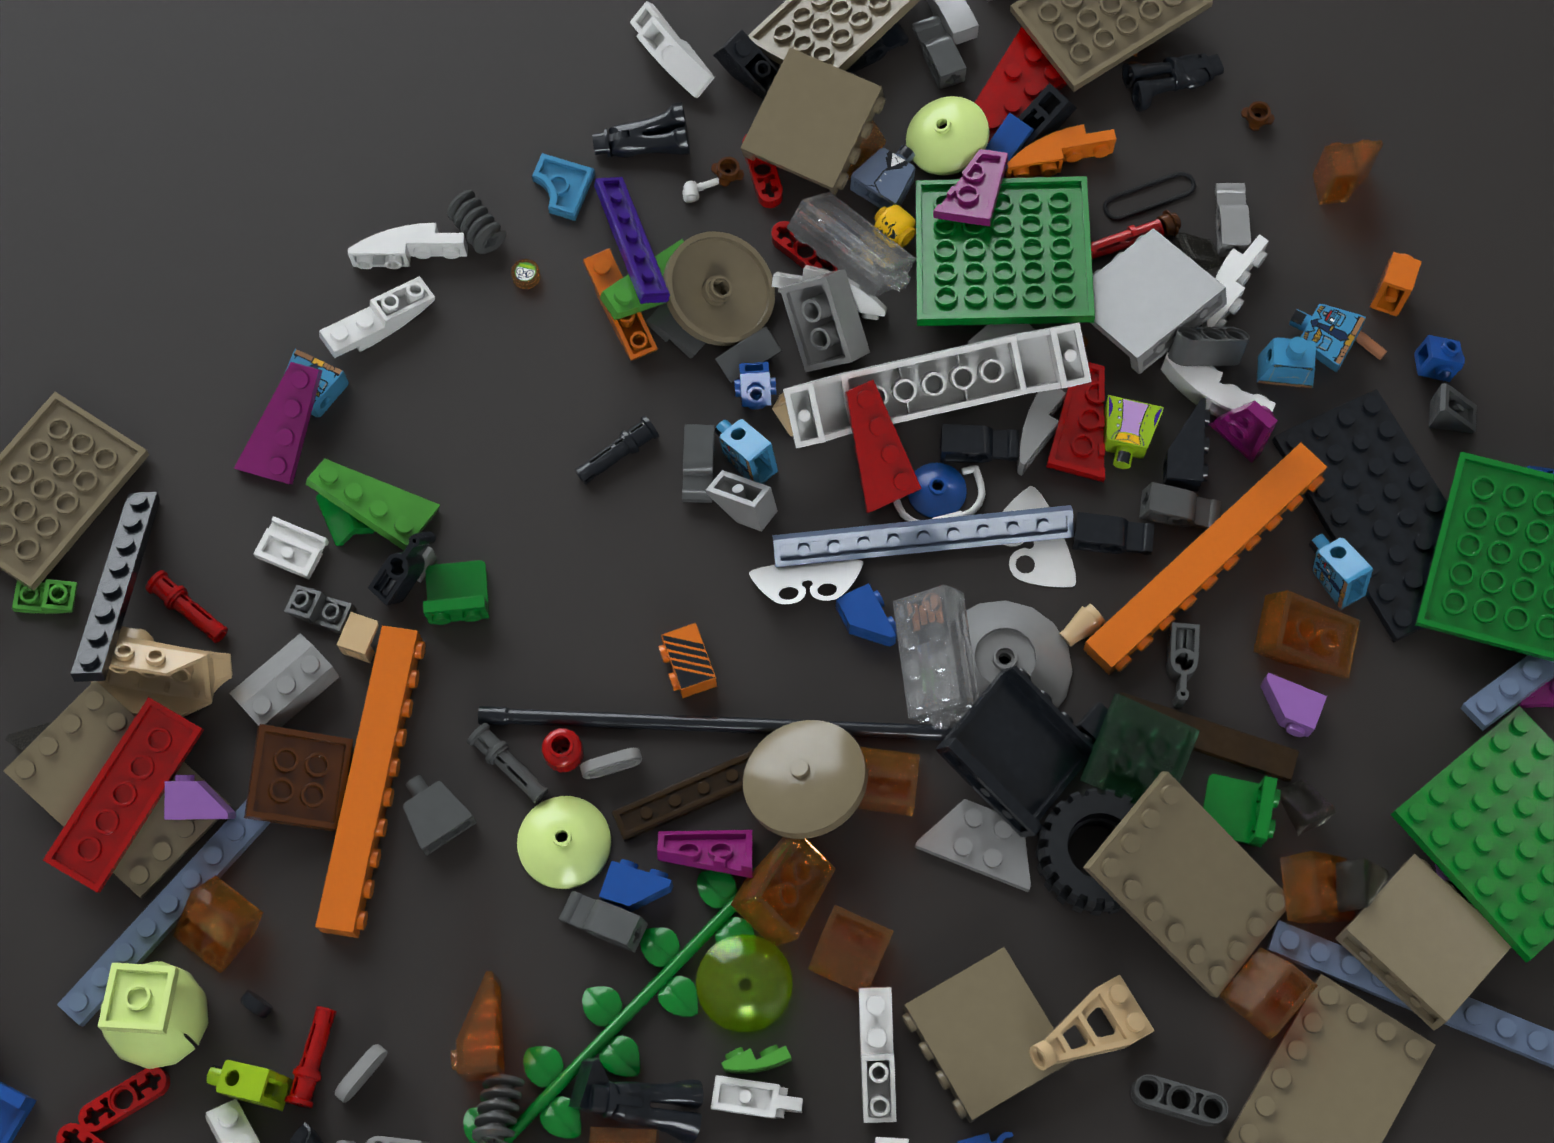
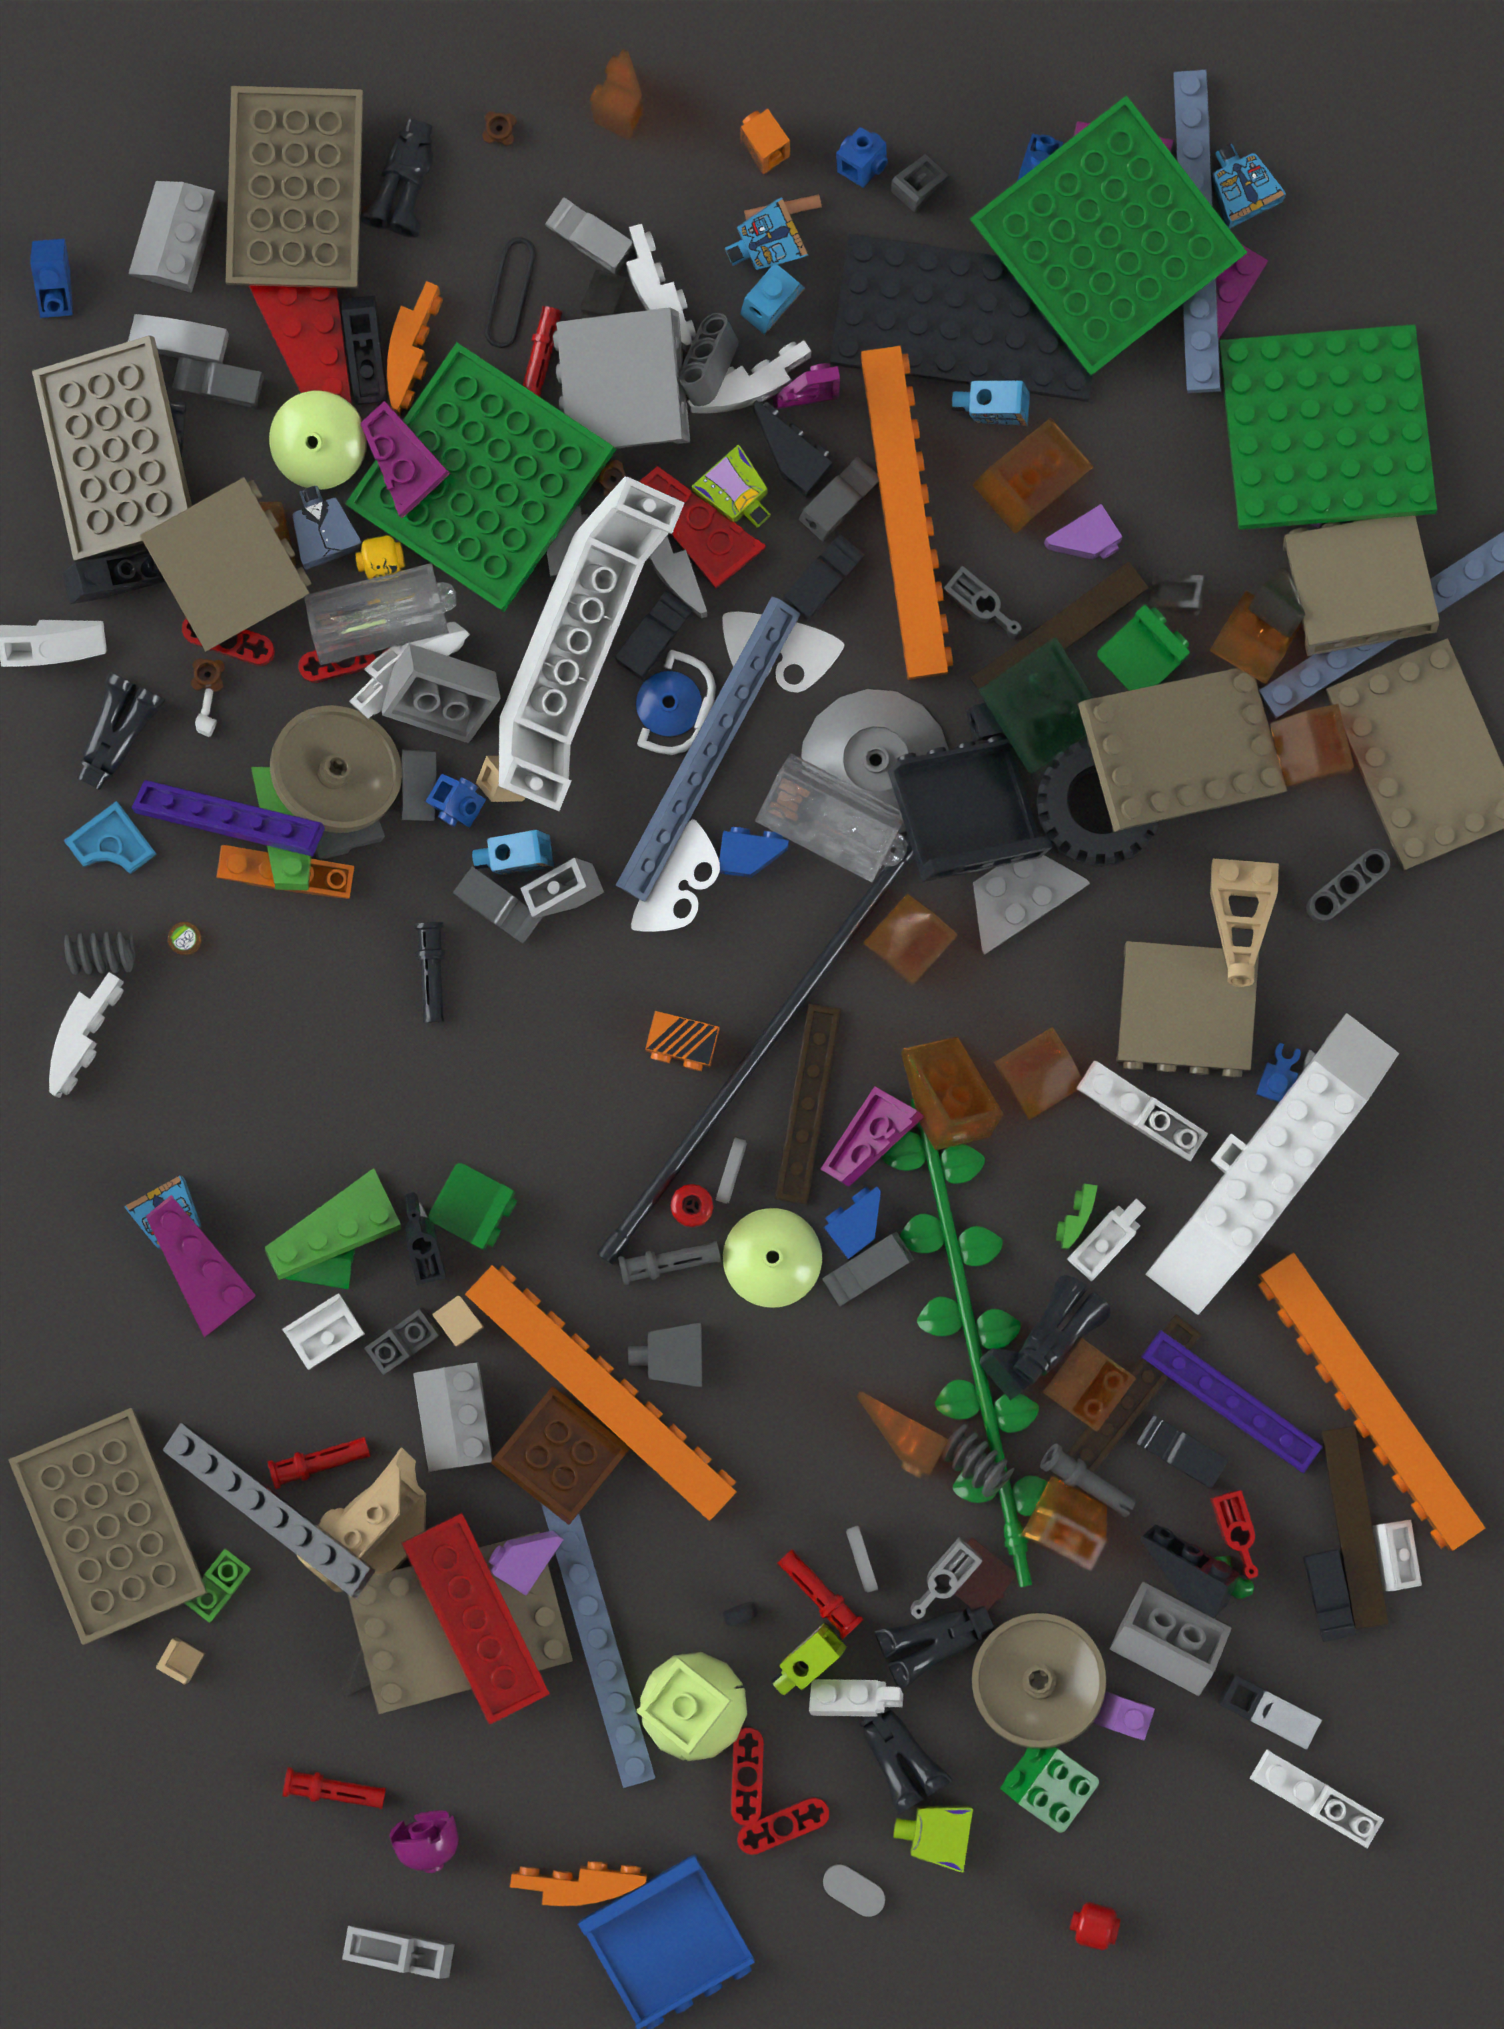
camera: 55 degrees left, 15 degrees up
(217, 923) = (644, 1606): clear orange slope -> none
(379, 320) = (140, 1108): white slope -> none
(727, 965) = (983, 1180): clear neon green dish -> none
(805, 779) = (867, 1011): dark tan dish -> none
(880, 454) = (613, 736): red wing -> none
(1010, 136) = (364, 385): blue tile -> none
(1083, 624) = (888, 666): tan cone -> none
(1171, 223) = (554, 297): reddish brown plate -> none

